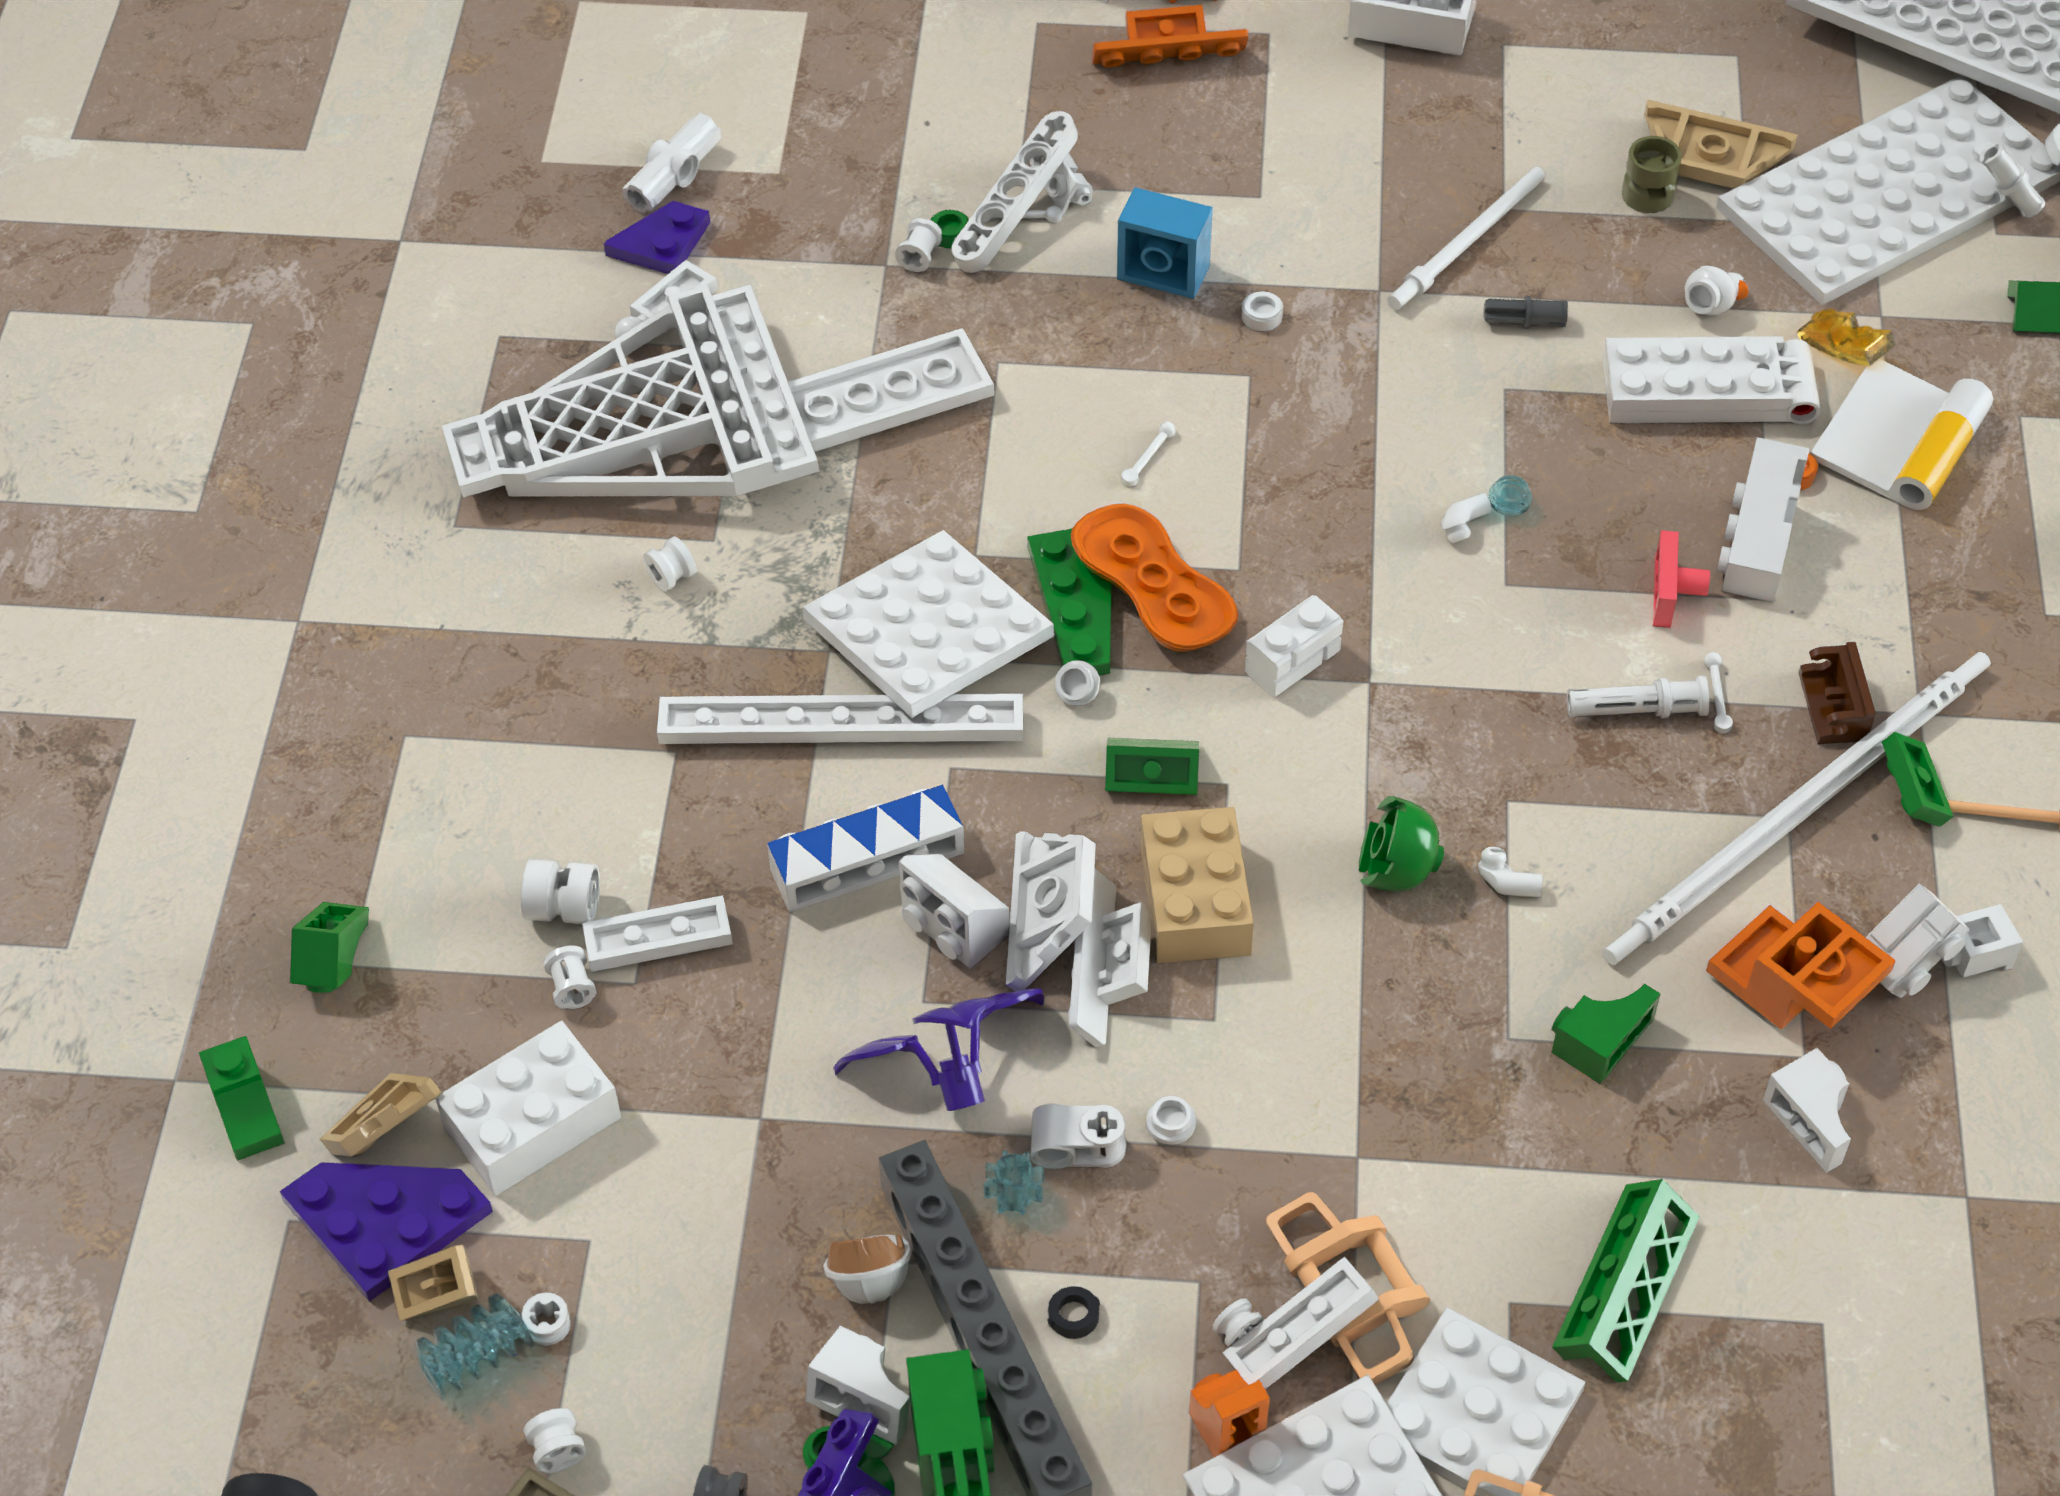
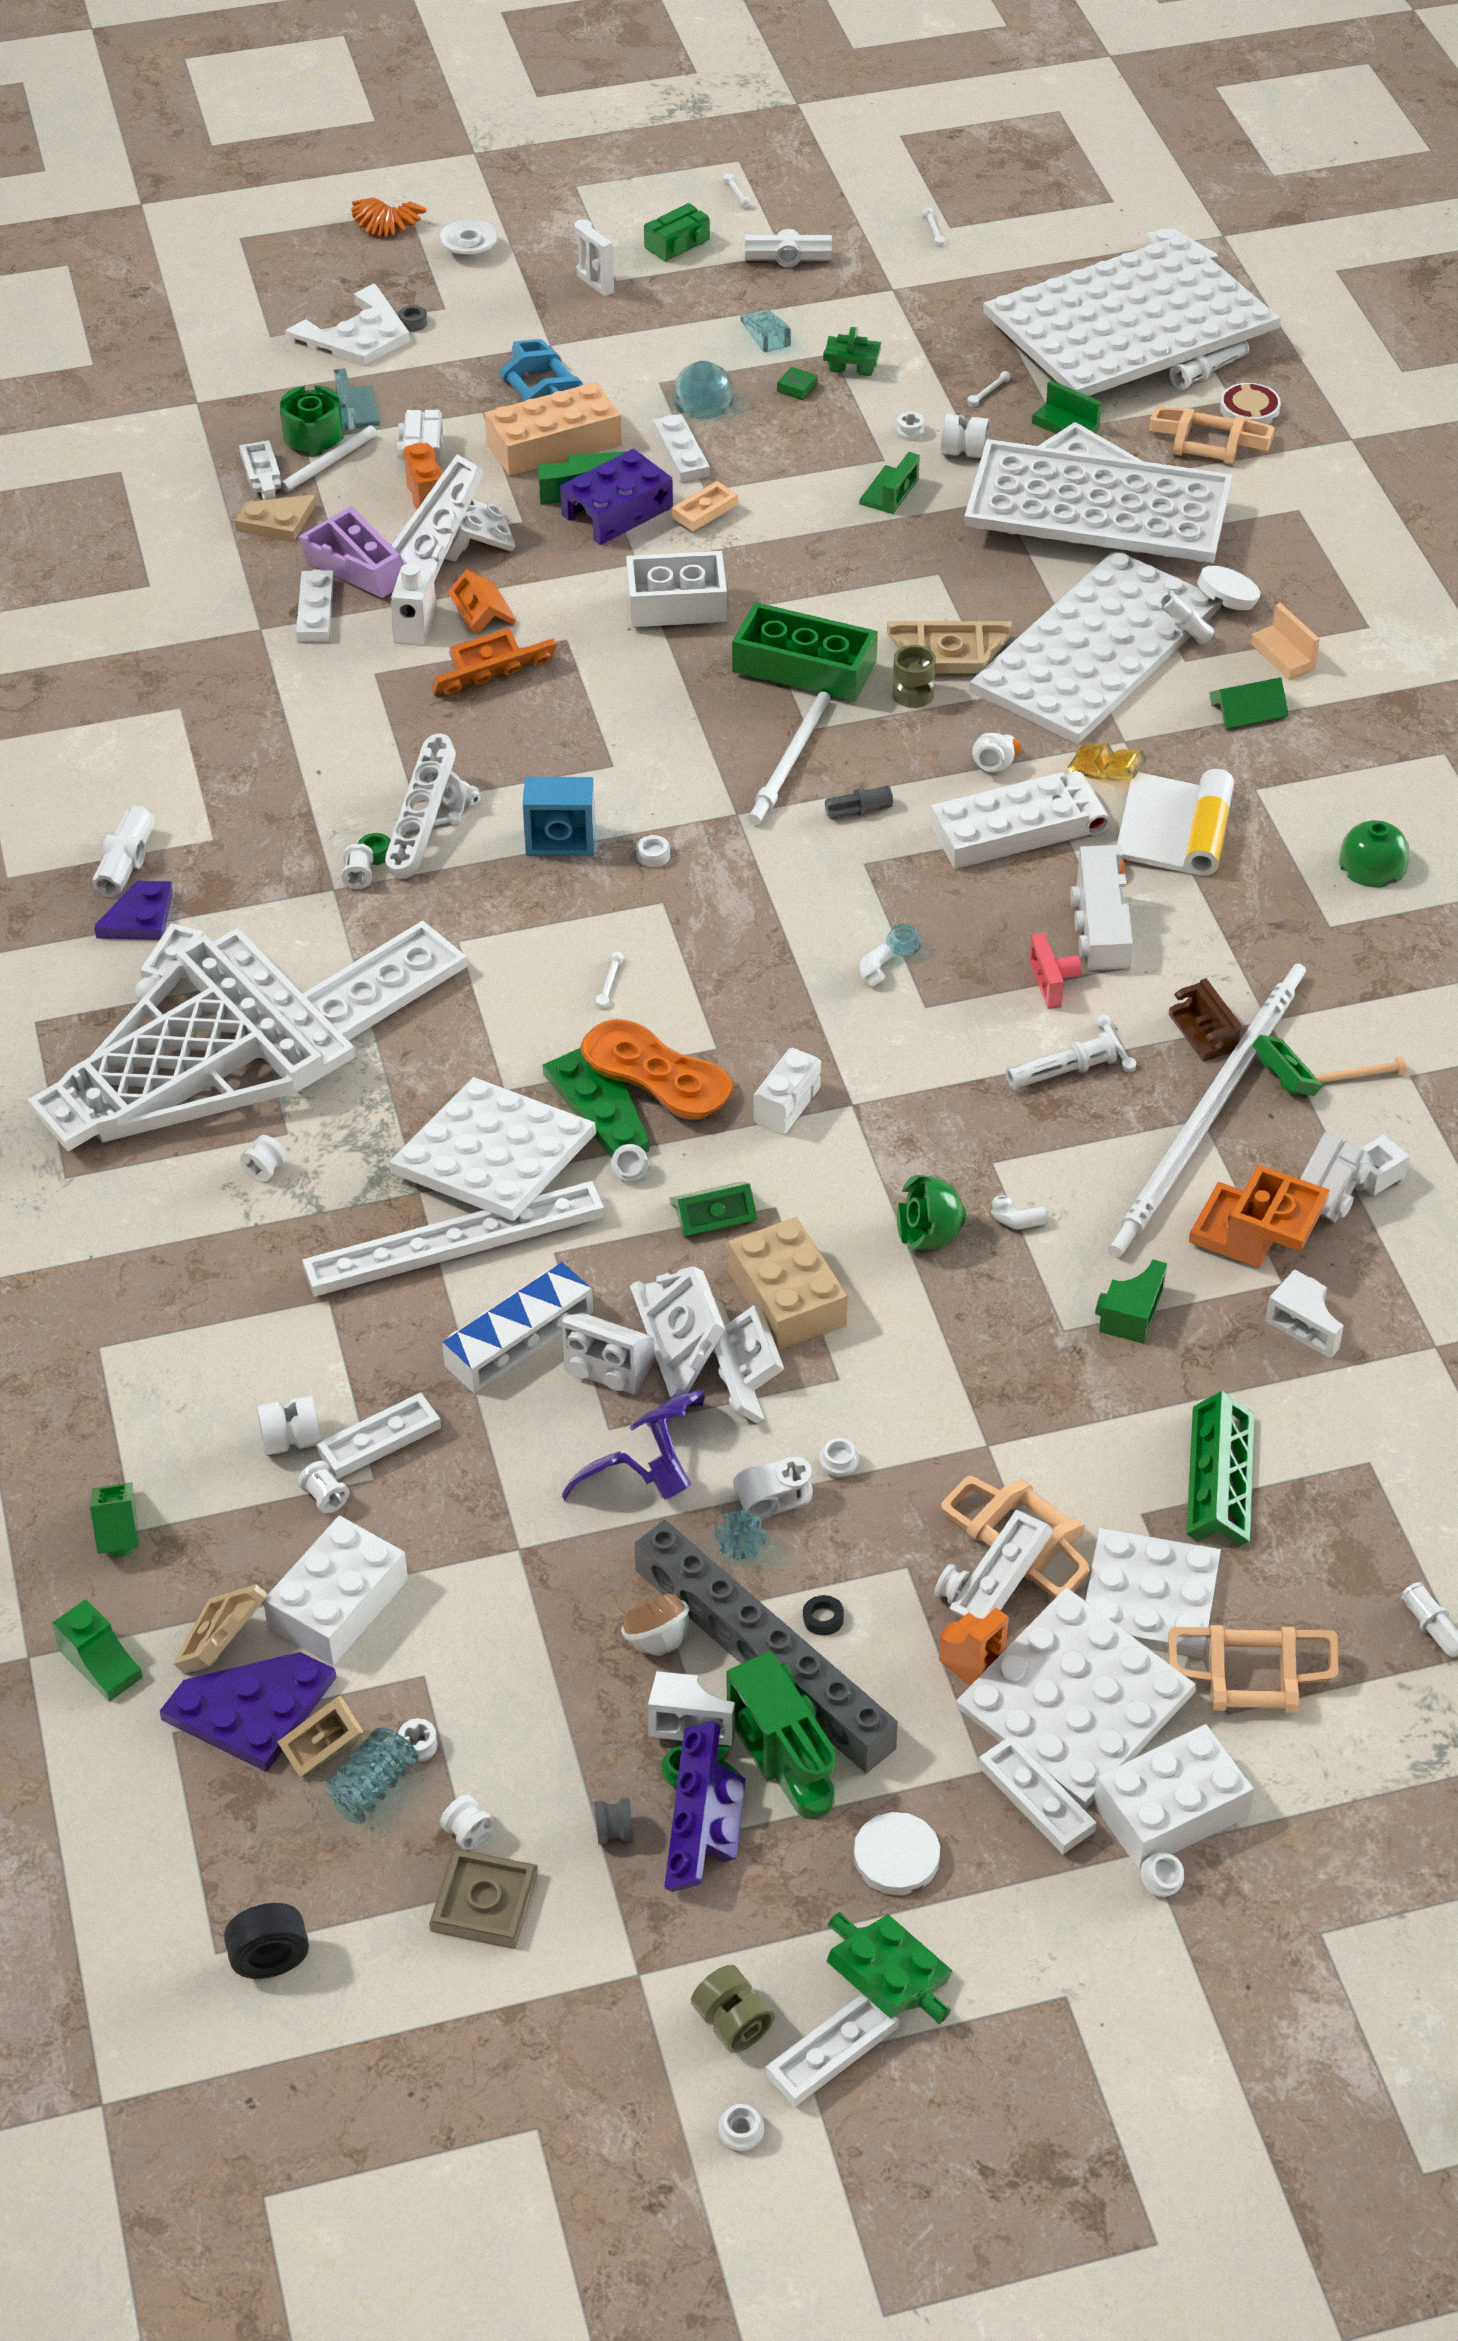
camera: 20 degrees left, 5 degrees down
(1533, 113) = (804, 651): none -> green brick

